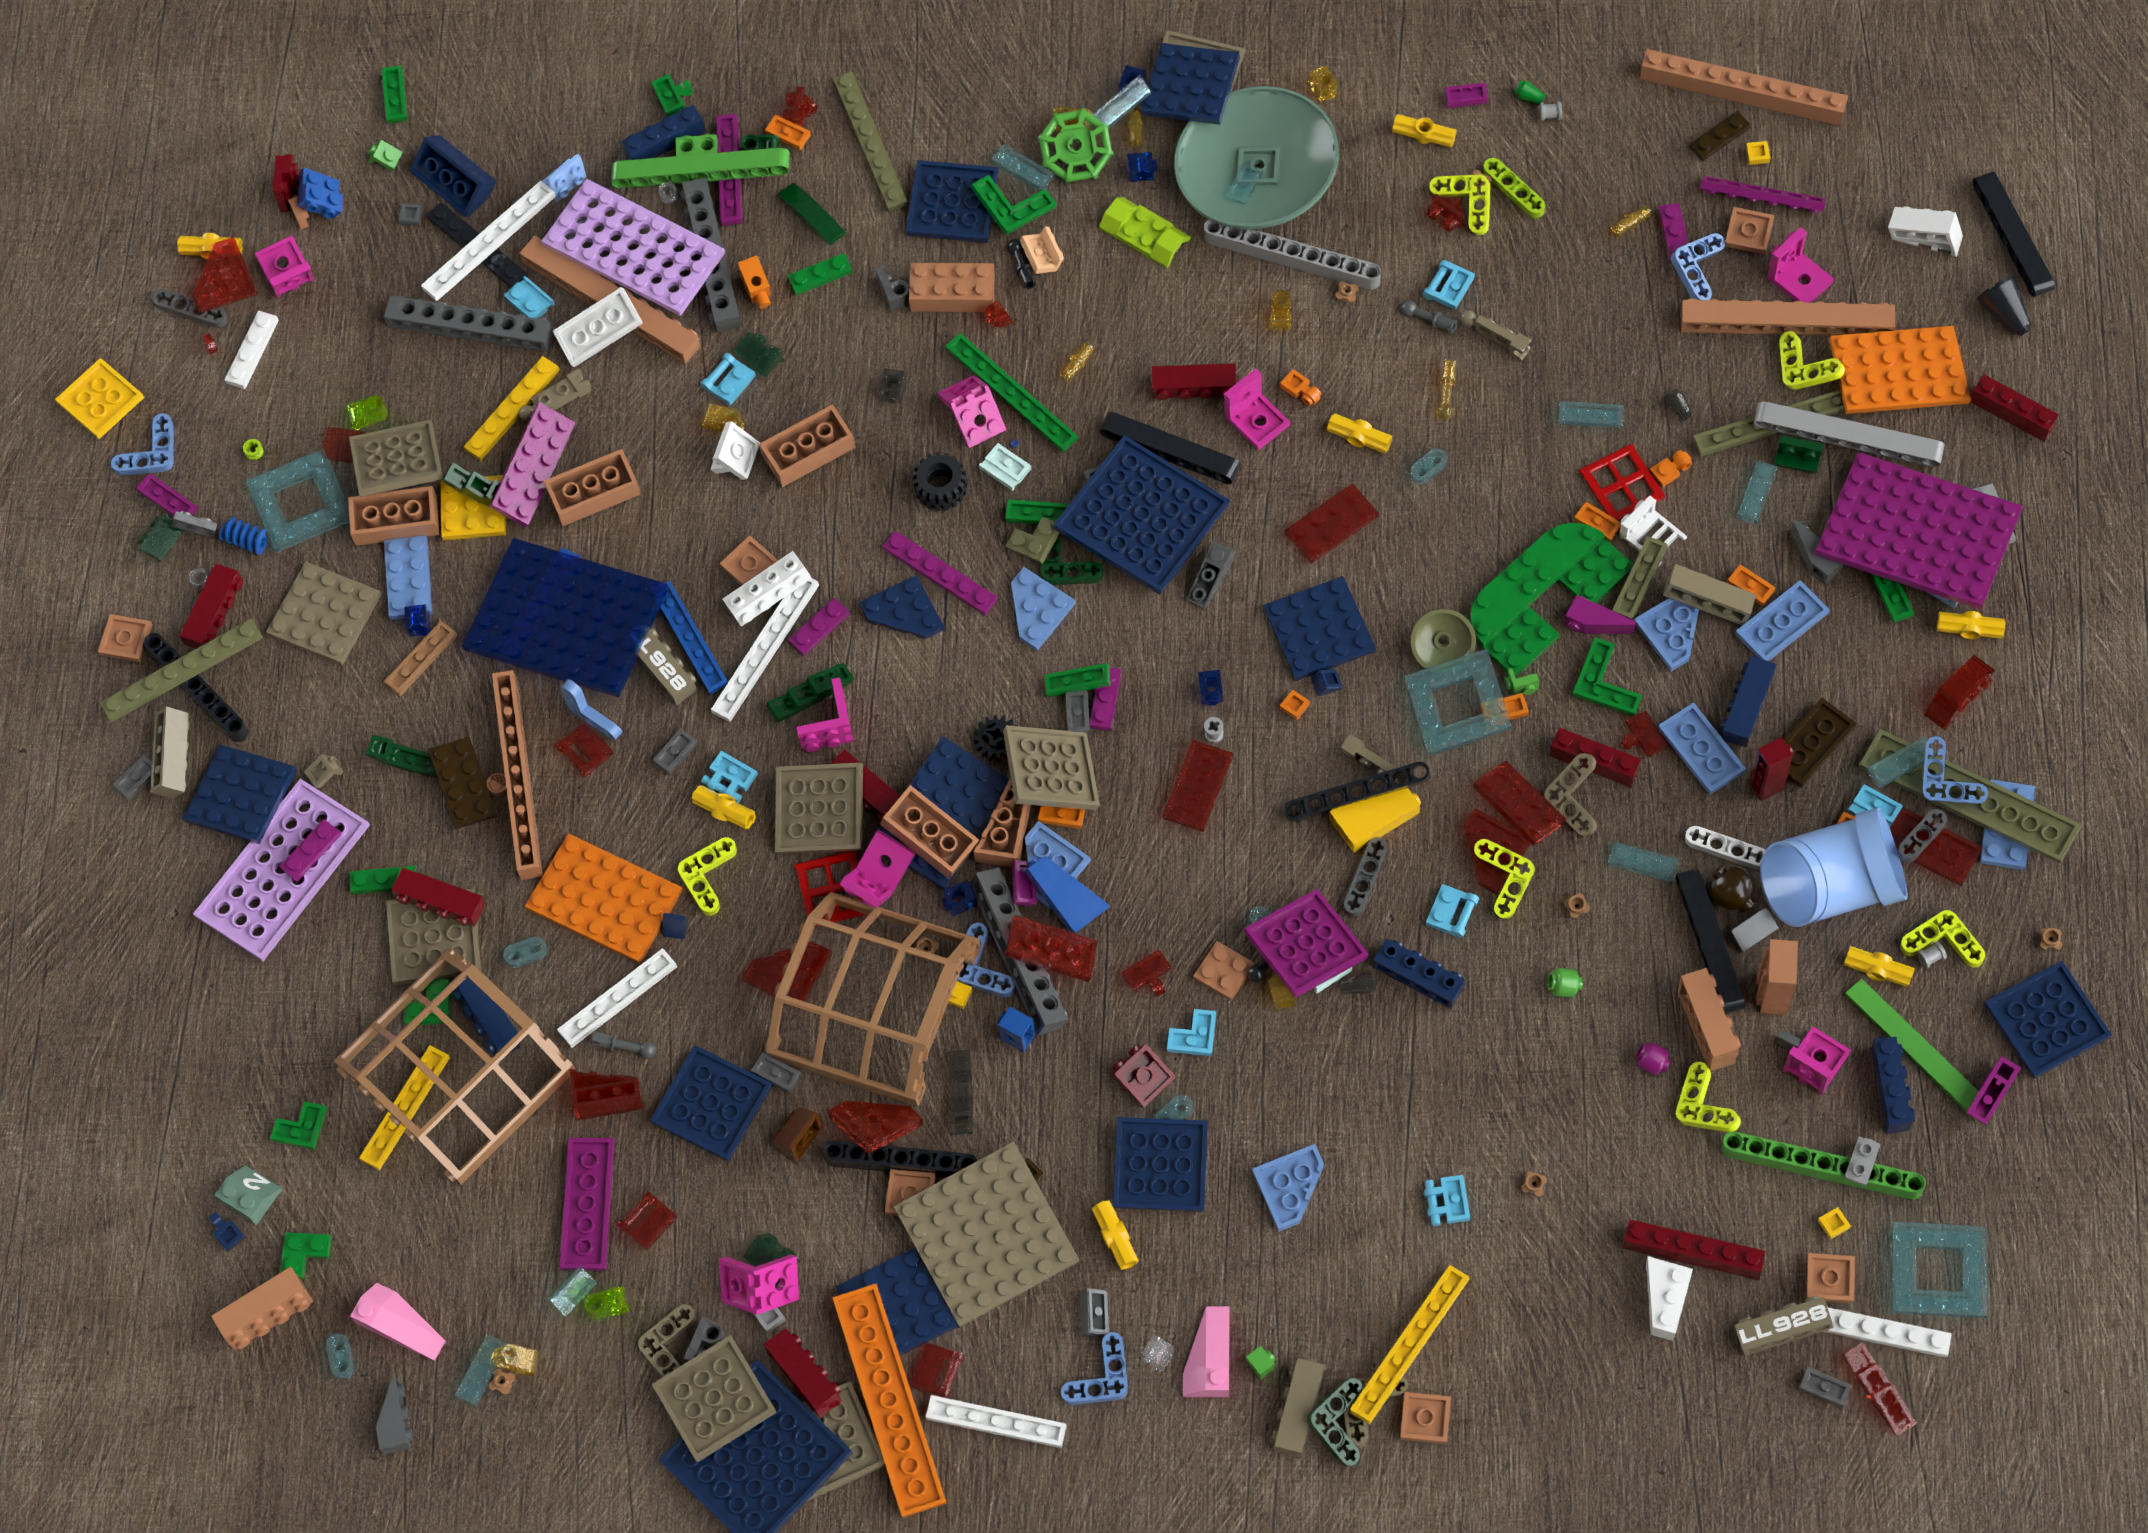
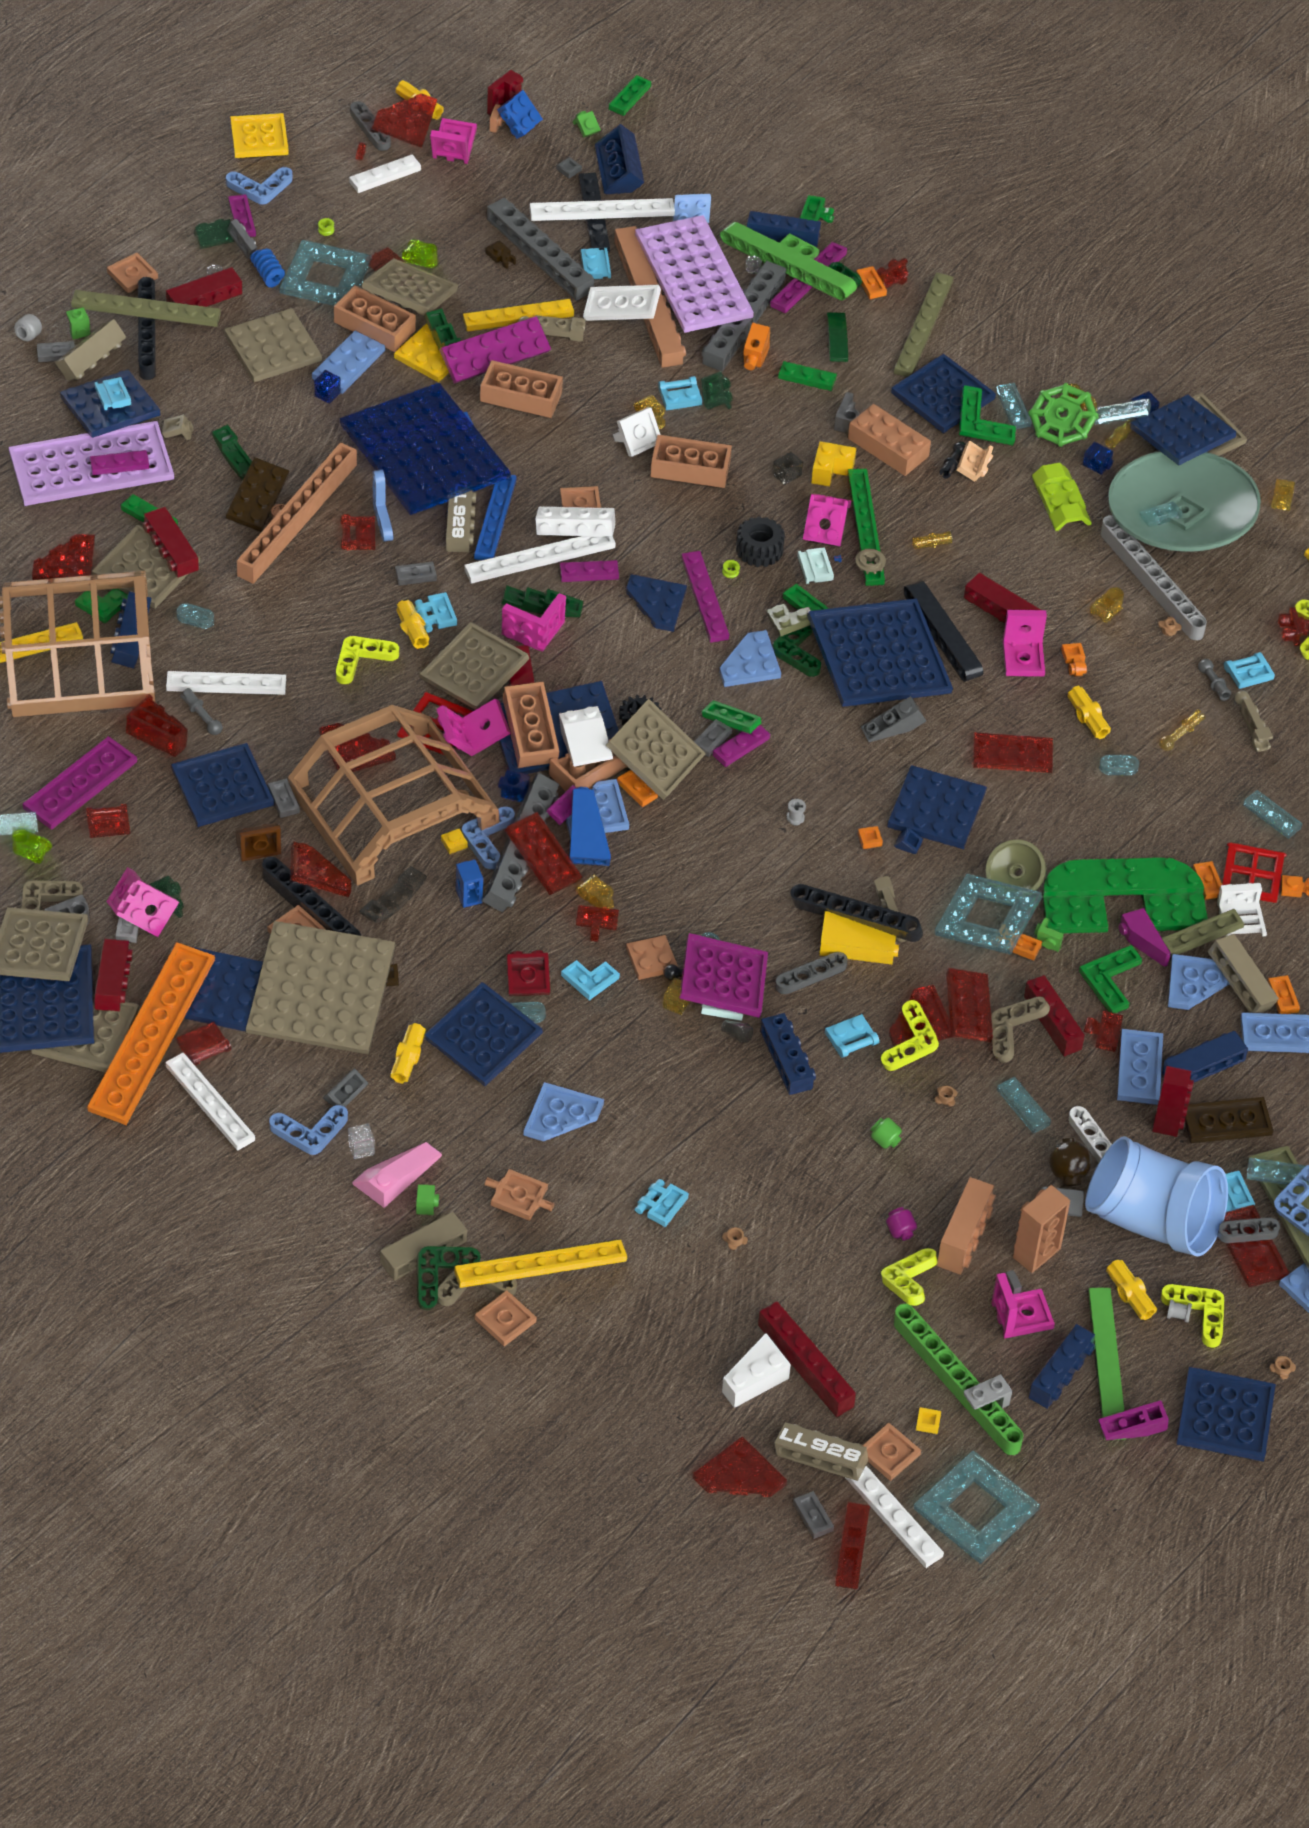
camera: 30 degrees right, 15 degrees down
(87, 773) = (28, 327): none -> light grey head
(130, 731) = (78, 323): none -> bright green bracket
(240, 785) = (113, 393): none -> medium azure plate
(359, 988) = (67, 560): none -> clear red plate
(420, 658) = (307, 411): medium nougat tile -> none
(434, 354) = (500, 252): none -> dark brown plate
(603, 898) = (279, 623): orange plate -> none
(674, 926) = (308, 669): dark blue slope -> none
(923, 347) = (832, 459): none -> yellow brick
(936, 520) = (731, 564): none -> lime bush
(986, 806) = (585, 736): none -> white slope
(997, 315) = (904, 476): clear red piece -> none
(1045, 421) = (870, 555): none -> dark tan gear
(1121, 947) = (596, 892): none -> clear yellow piece
(1198, 785) = (750, 837): clear red plate -> none
(1210, 679) = (821, 786): clear blue brick -> none
(1329, 1292) = (519, 1194): none -> nougat plate
(1710, 938) = (1020, 1185): black beam -> none
(1733, 1397) = (740, 1471): none -> clear red plate

